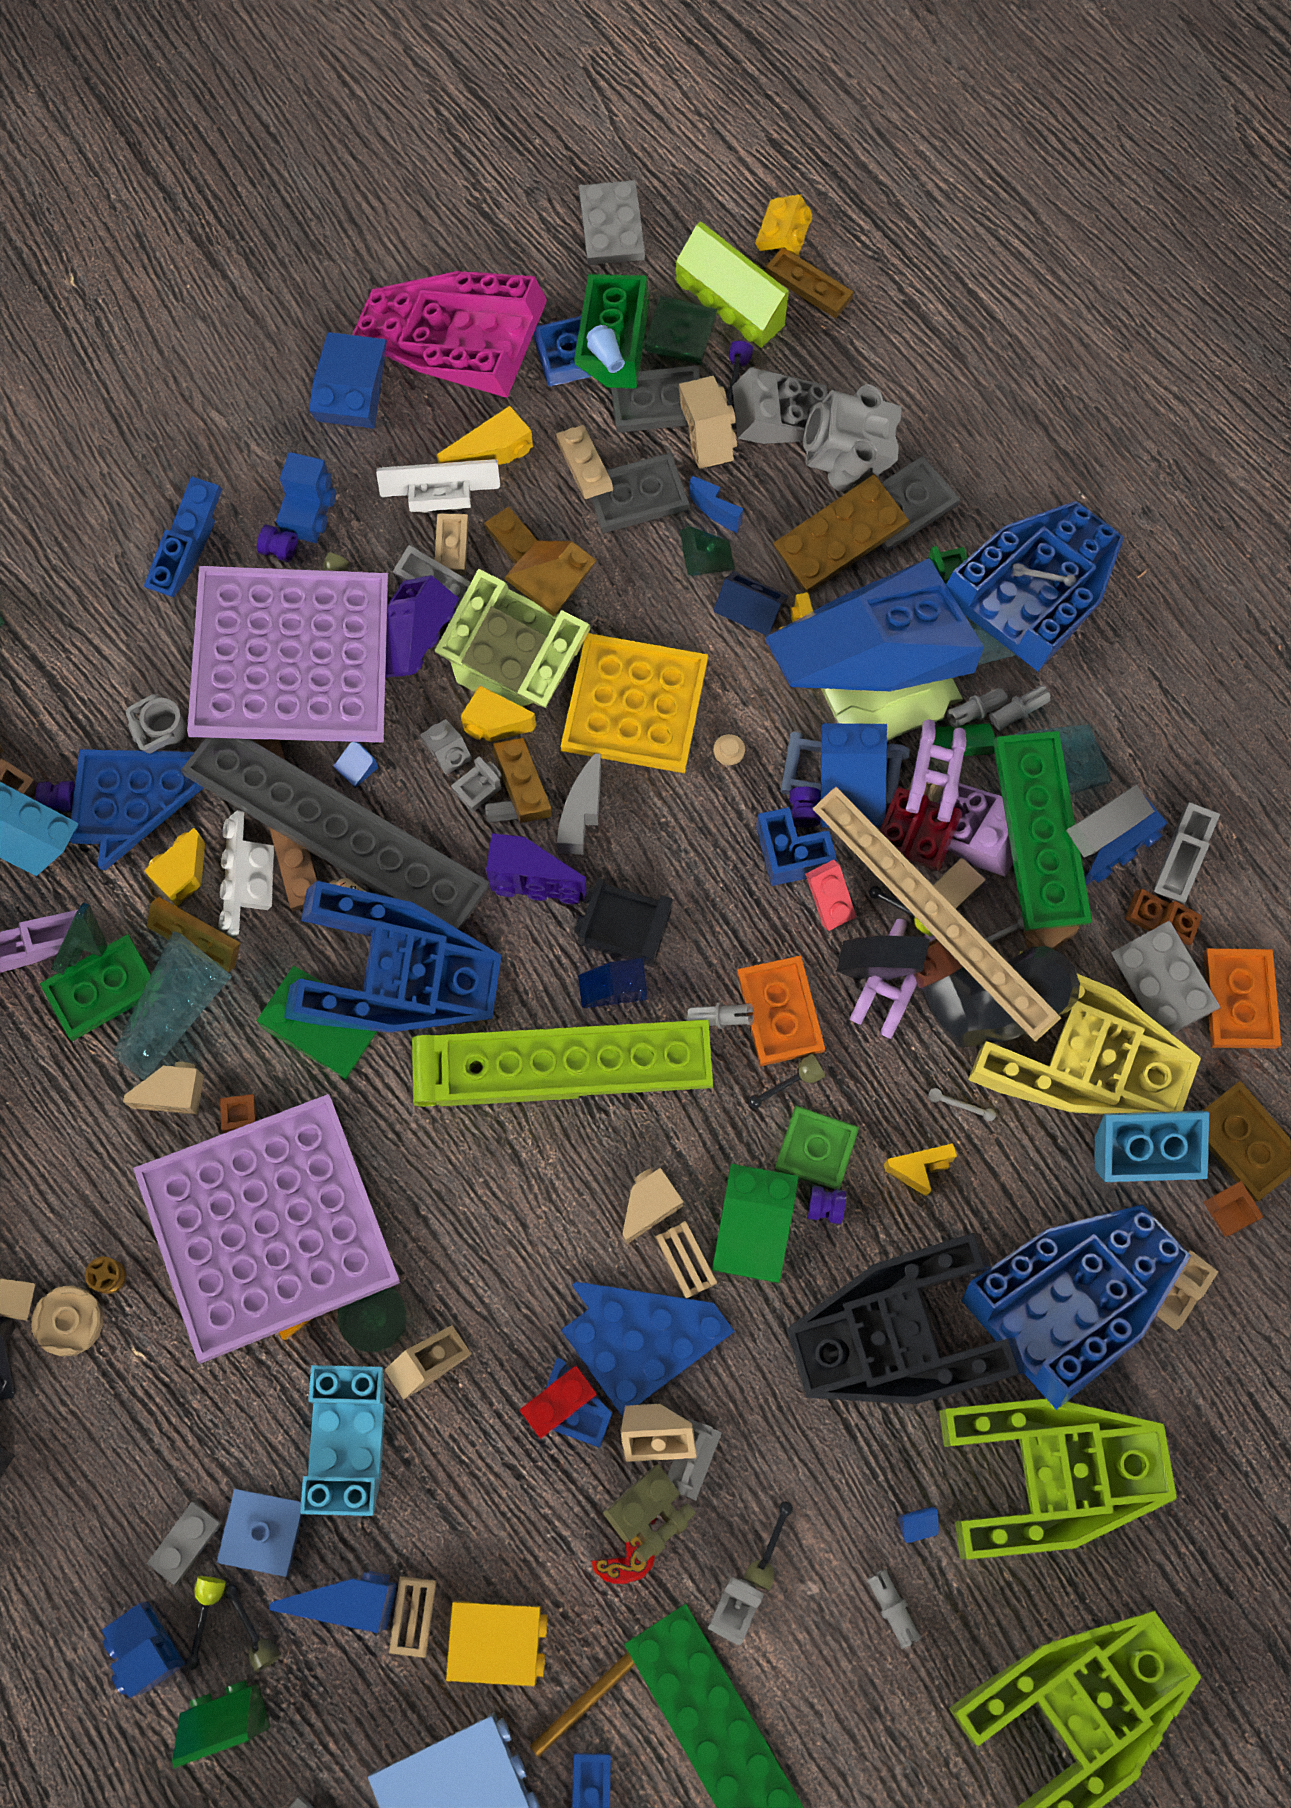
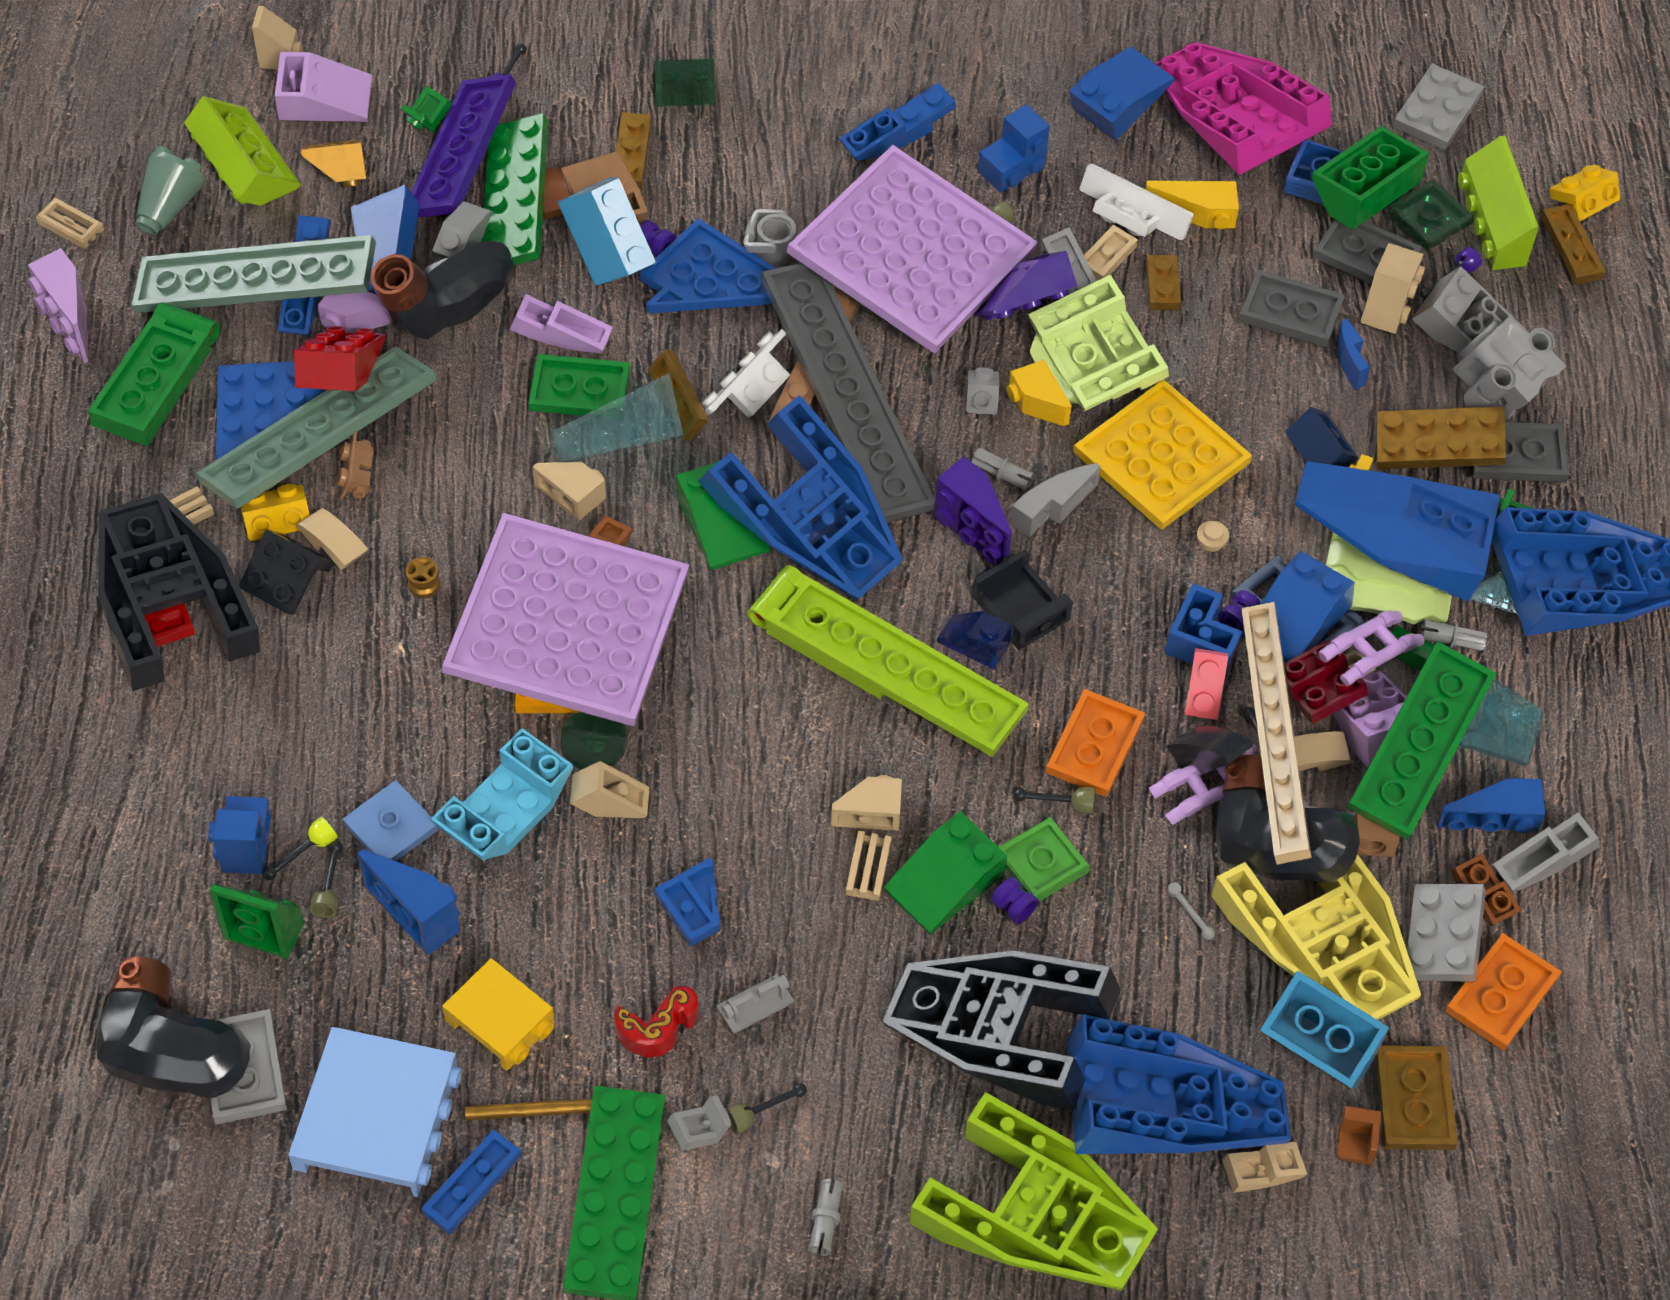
camera: 35 degrees right, 15 degrees down
(67, 1321) = (369, 591): tan tile -> none
(82, 935) = (596, 332): clear green slope -> none
(179, 868) = (706, 343): yellow slope -> none
(184, 1543) = (330, 792): light grey plate -> none
(278, 543) = (965, 167): dark purple wheel -> none
(356, 764) = (901, 359): slope -> none
(417, 1583) = (458, 970): tan tile -> none
(478, 784) = (985, 431): light grey bracket -> none
(503, 649) = (1083, 344): olive plate -> none
(521, 780) = (1022, 447): pearl gold plate -> none
(551, 573) = (1170, 319): pearl gold slope -> none
(558, 1402) = (684, 885): red plate -> none
(584, 462) = (1265, 258): tan plate -> none
(604, 346) = (1343, 175): light blue cone -> none
(641, 1339) = (787, 896): blue wing -> none
(643, 1503) = (691, 990): olive plate -> none
(656, 1434) = (739, 955): tan slope -> none
(705, 552) = (1313, 381): clear green slope -> none
(722, 1014) = (1044, 712): light grey axle -> none
(912, 1166) = (1111, 920): yellow slope -> none
(919, 1524) = (897, 1172): blue slope -> none
(1019, 569) = (1574, 553): light grey hinge -> none
(1019, 707) = (1495, 658): light grey axle -> none
(1110, 821) = (1490, 770): light grey slope -> none

